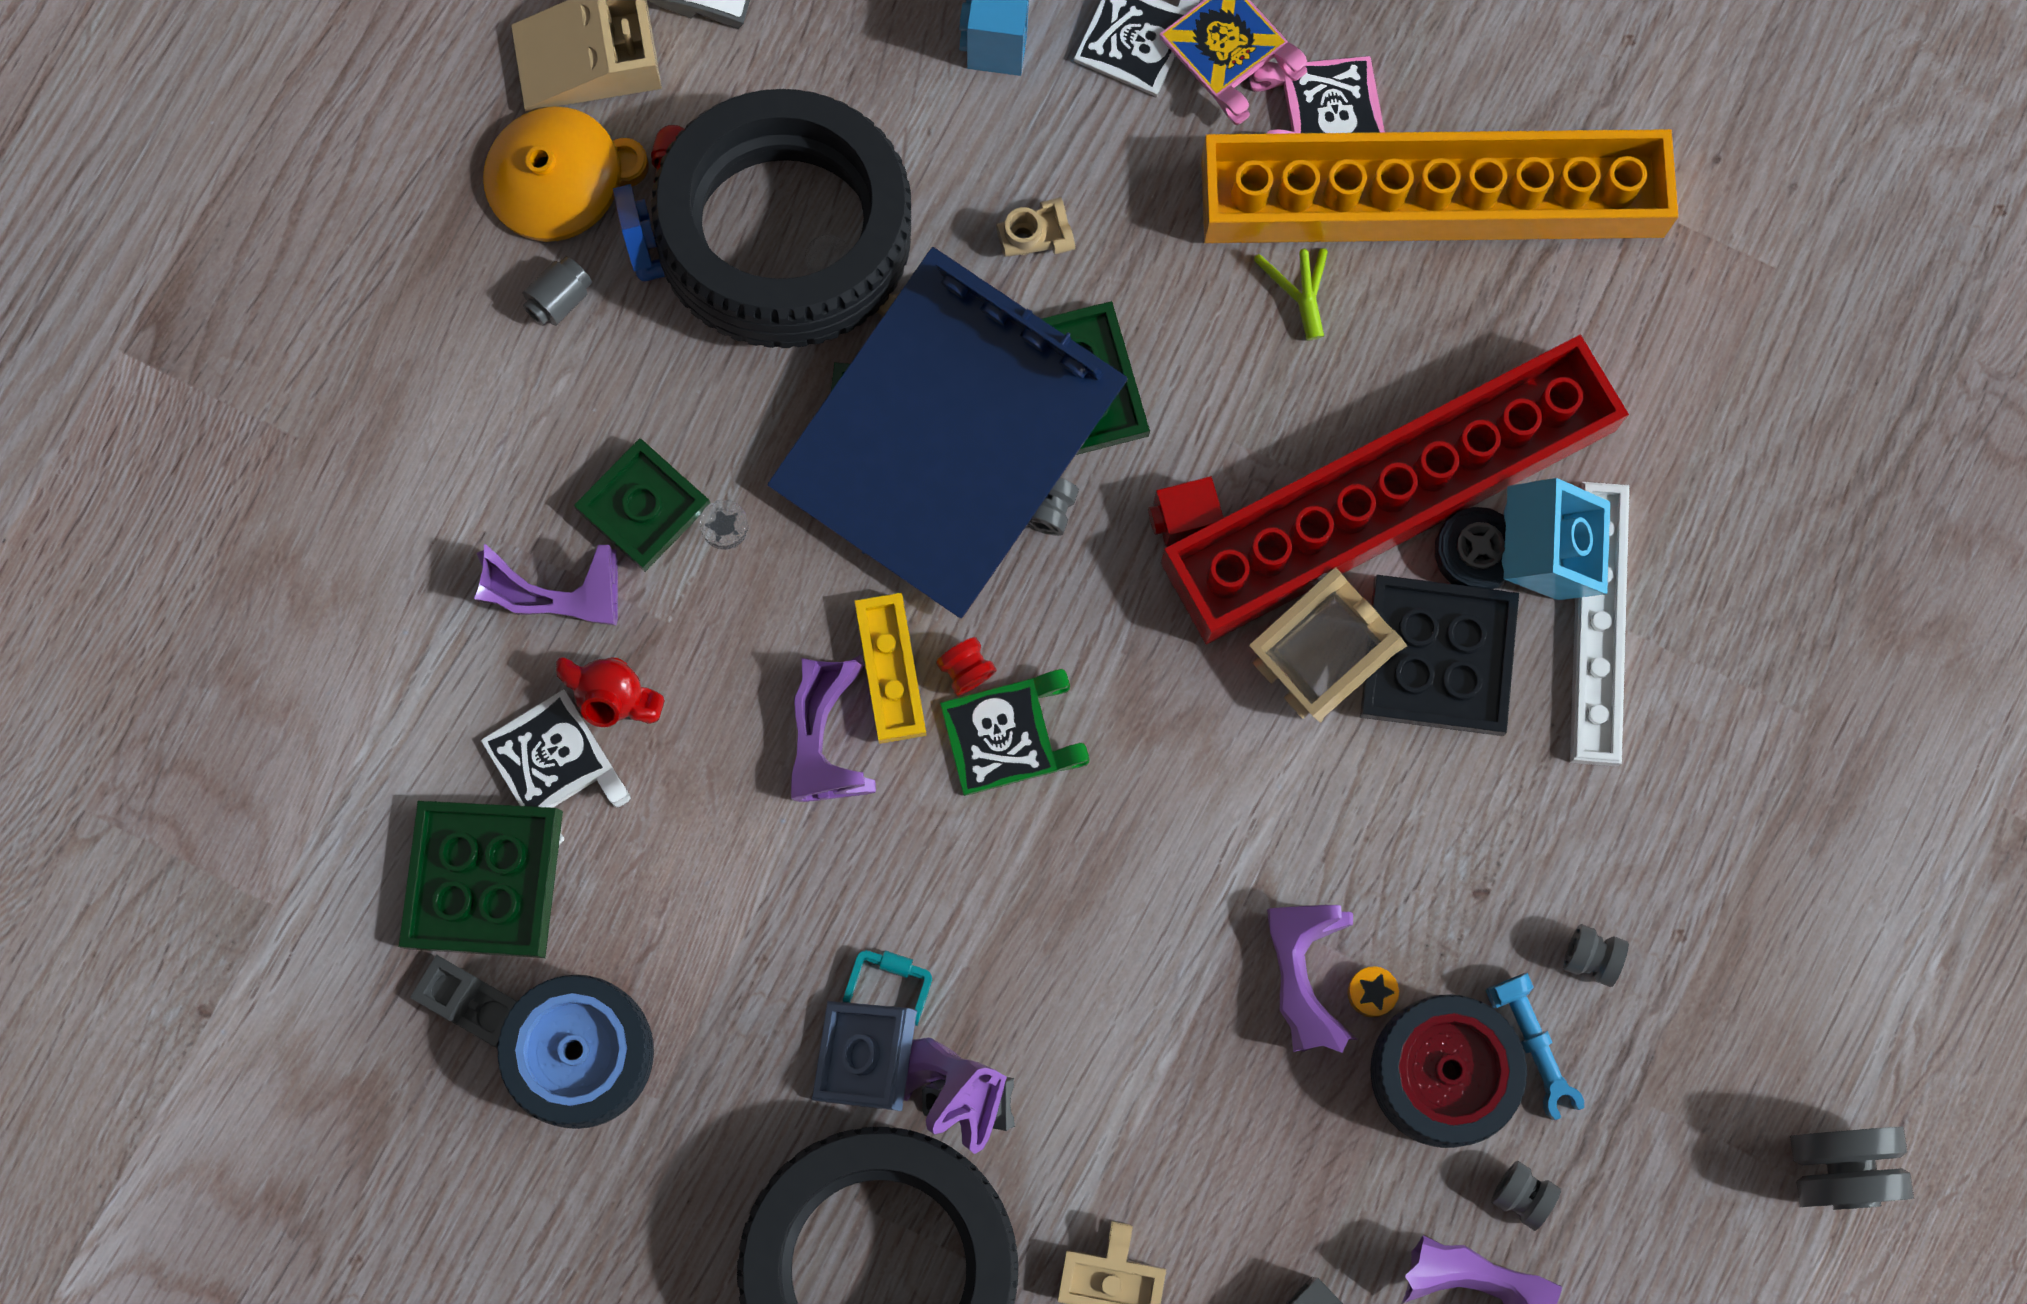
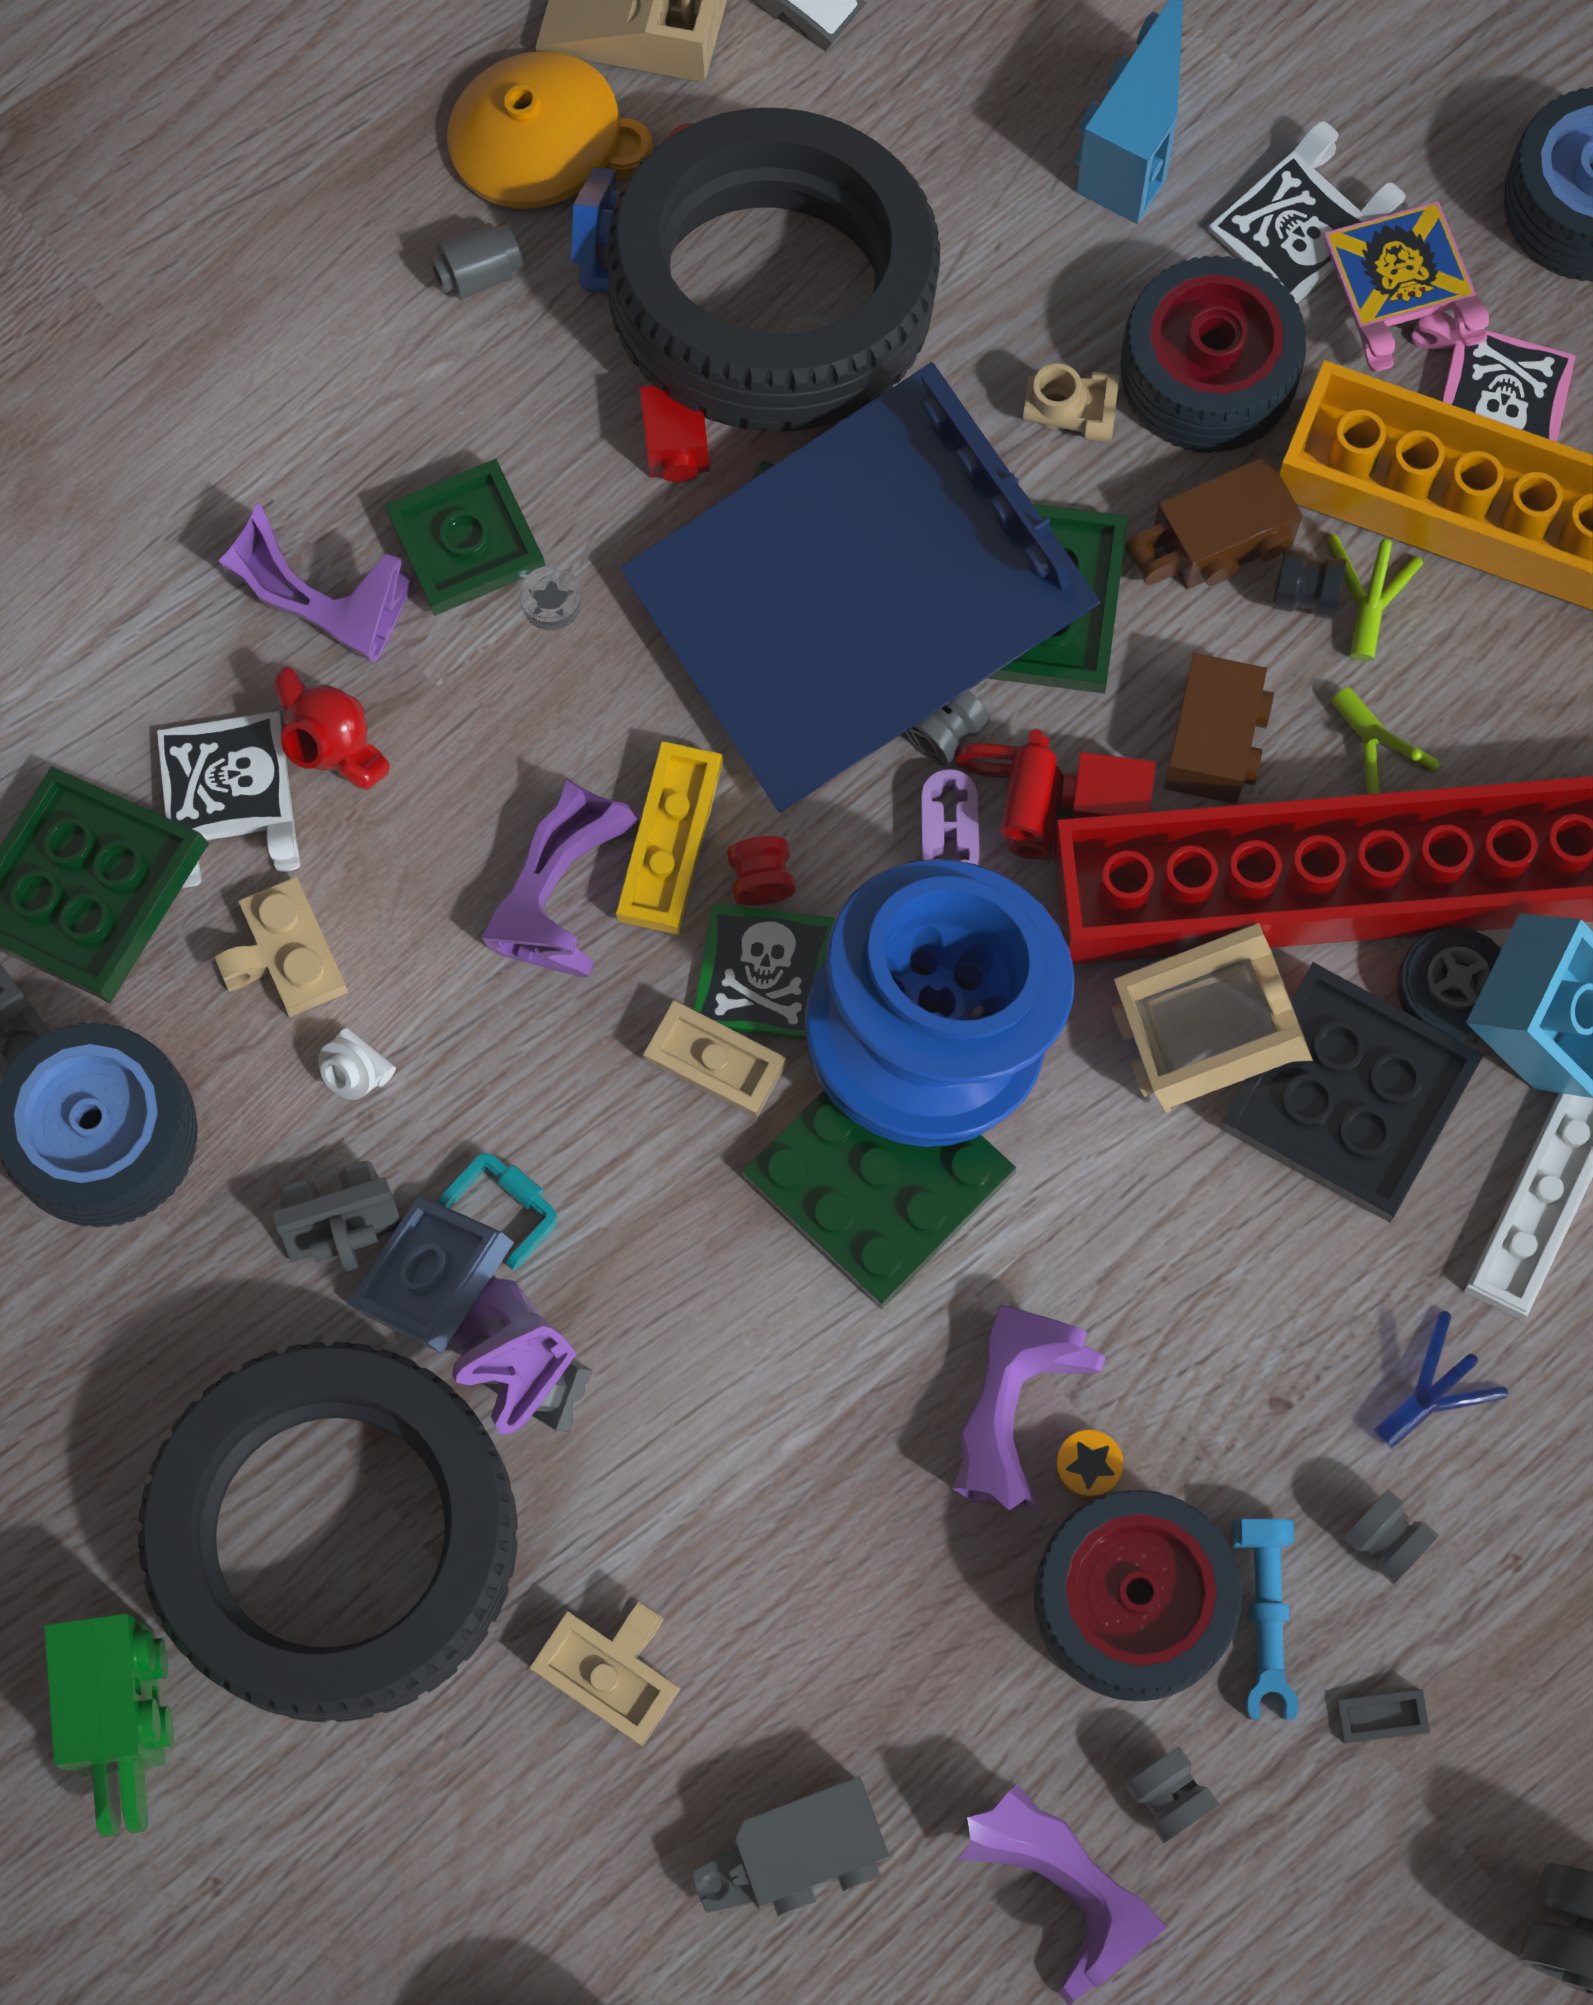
camera: 30 degrees right, 5 degrees down
(650, 861) = (286, 948): none -> tan plate
(738, 928) = (353, 1066): none -> white plate
(760, 369) = (673, 437): none -> red brick
(782, 1046) = (338, 1220): none -> dark grey hips
(993, 815) = (715, 1059): none -> tan plate
(1092, 740) = (915, 1049): none -> blue wheel
(1093, 575) = (966, 822): none -> lavender beam
(1121, 156) = (1213, 353): none -> wheel
(1132, 532) = (1031, 792): none -> red piece
(1141, 848) = (870, 1200): none -> dark green plate
(1179, 283) = (1218, 527): none -> reddish brown brick
(1240, 432) = (1217, 727): none -> reddish brown brick
(1258, 300) = (1309, 584): none -> black wheel
(1345, 390) = (1373, 733): none -> lime plant
(1588, 844) = (1428, 1397): none -> clear blue plant
(1640, 1078) = (1384, 1716): none -> dark grey piece

